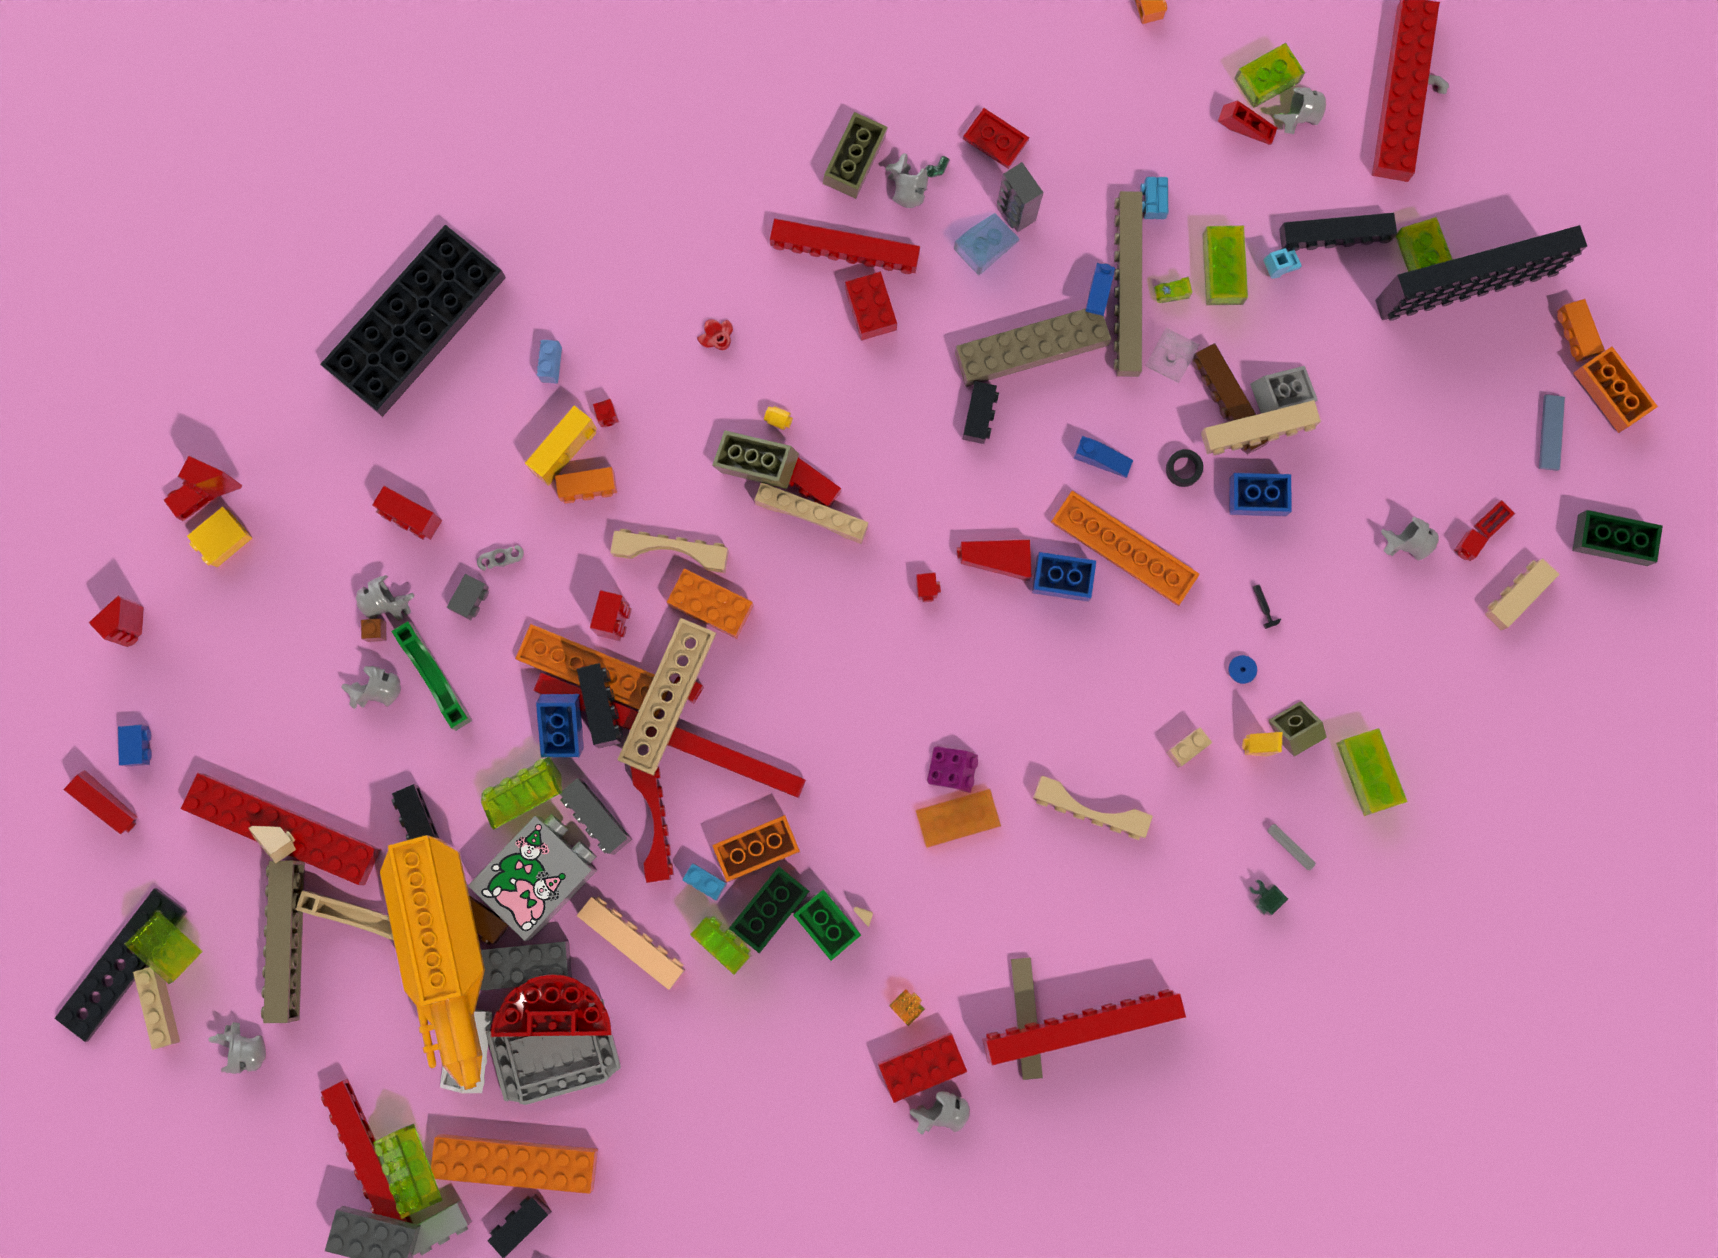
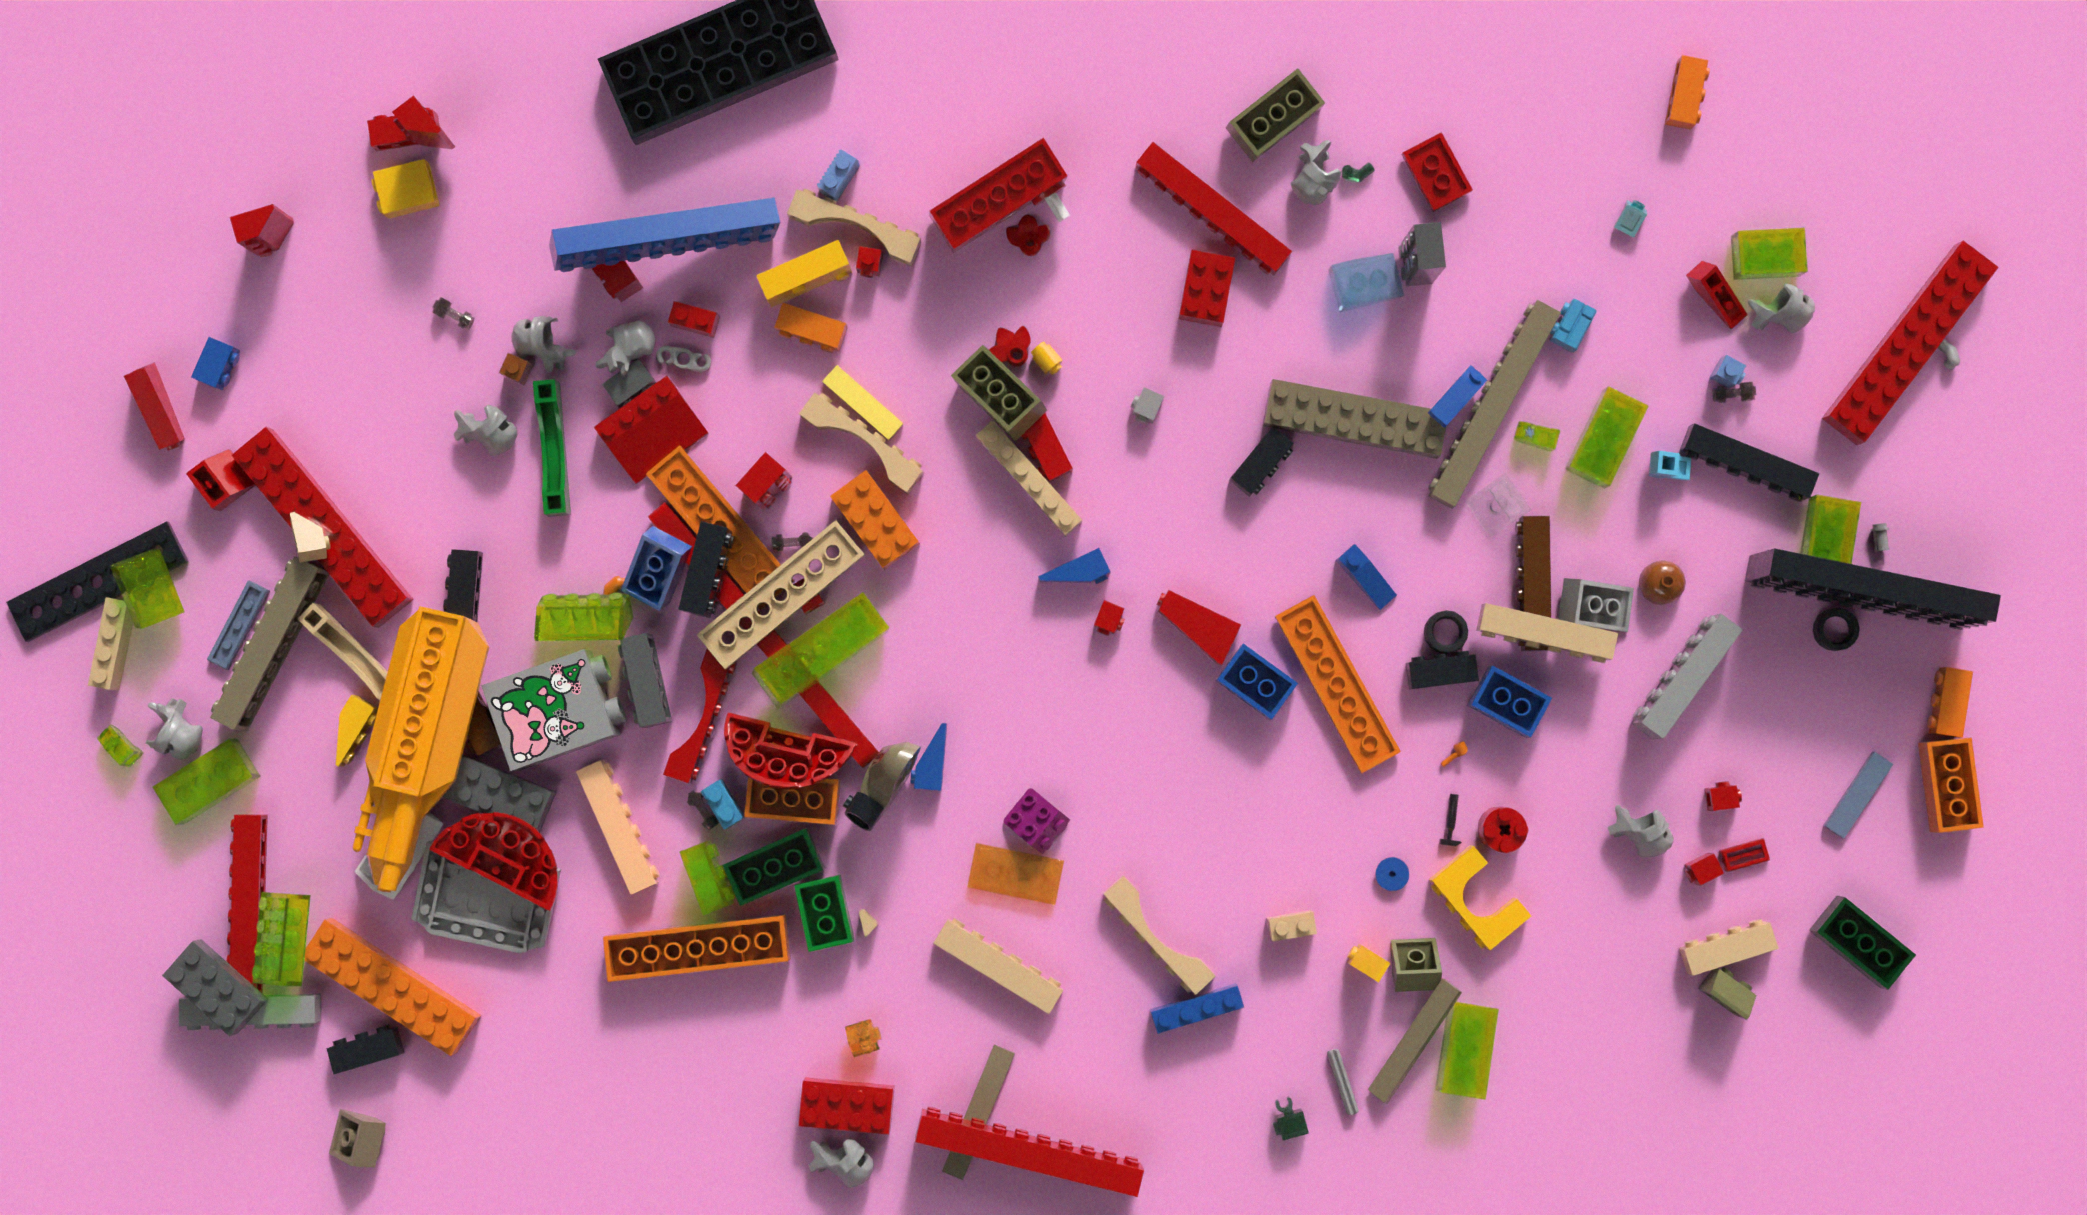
camera: 30 degrees right, 5 degrees up
(181, 833) = (220, 480): none -> red slope
(201, 1086) = (119, 746): none -> clear neon green leg
(251, 941) = (238, 625): none -> sand blue tile
(285, 1077) = (206, 781): none -> clear neon green brick
(293, 612) = (443, 307): none -> clear smoke bar
(382, 973) = (353, 723): none -> yellow slope
(436, 467) = (663, 234): none -> brick
(454, 565) = (631, 342): none -> light grey piece
(493, 523) = (693, 319): none -> red brick
(501, 622) = (650, 428): none -> red slope
(533, 756) = (613, 585): none -> orange arm
(543, 396) = (813, 210): none -> tan arch
(645, 659) = (779, 542): none -> clear smoke bar
(655, 521) = (862, 402): none -> light yellow tile
(680, 311) = (1001, 193): none -> red piece
(681, 889) = (696, 799): none -> clear smoke bar
(719, 723) = (820, 650): none -> clear neon green brick
(732, 819) = (781, 756): none -> red brick
(741, 1005) = (696, 948): none -> orange brick
(744, 421) = (1010, 343): none -> red plate
(820, 800) = (881, 784): none -> dark tan piece
(850, 770) = (931, 764): none -> blue slope
(872, 414) = (1146, 405): none -> light grey brick
(887, 561) = (1080, 570): none -> blue slope
(983, 895) = (999, 966): none -> tan brick
(1152, 848) = (1197, 1009): none -> blue arch
(1155, 101) = (1631, 218): none -> teal bracket
(1197, 498) = (1442, 670): none -> black brick
(1242, 549) = (1460, 748): none -> orange hand
(1287, 174) = (1728, 372): none -> medium blue brick
(1290, 654) = (1450, 884): none -> yellow arch
(1307, 183) = (1746, 392): none -> clear smoke bar
(1315, 586) = (1515, 828): none -> red brick
(1323, 351) = (1662, 582): none -> dark orange cylinder
(1329, 786) = (1415, 1040): none -> dark tan tile
(1379, 408) = (1686, 676): none -> light grey brick
(1455, 484) = (1723, 796): none -> red brick
(1462, 237) = (1880, 536): none -> light grey pin
(1473, 307) = (1853, 626): none -> black tyre
(1541, 627) = (1728, 992): none -> olive slope

